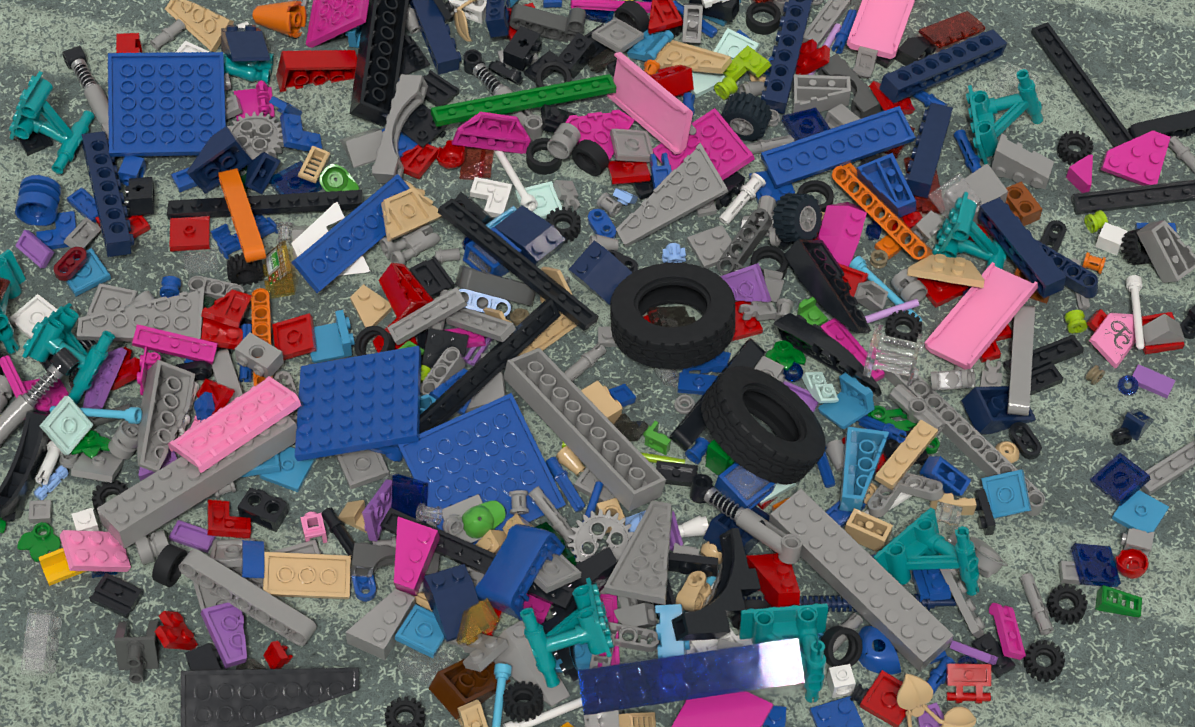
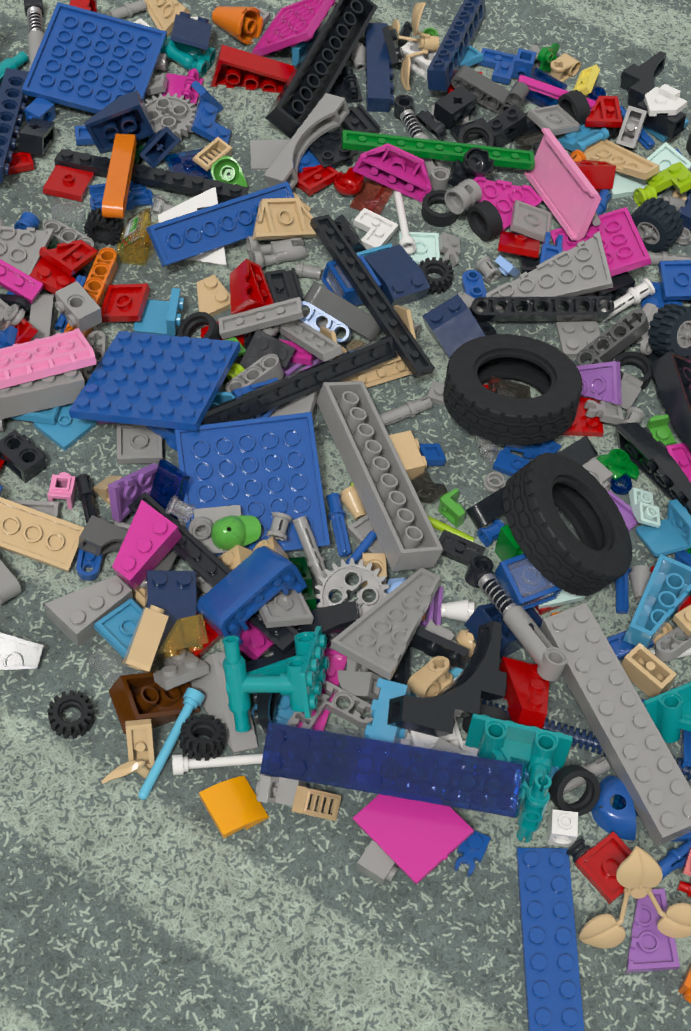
camera: 15 degrees right, 0 degrees up
(203, 380) = (14, 314): none -> light grey bush
(447, 635) = (146, 639): none -> tan slope
(565, 103) = (477, 162): none -> black hair
(673, 253) = (537, 331): light blue gear -> none
(677, 224) = (550, 305): none -> black beam

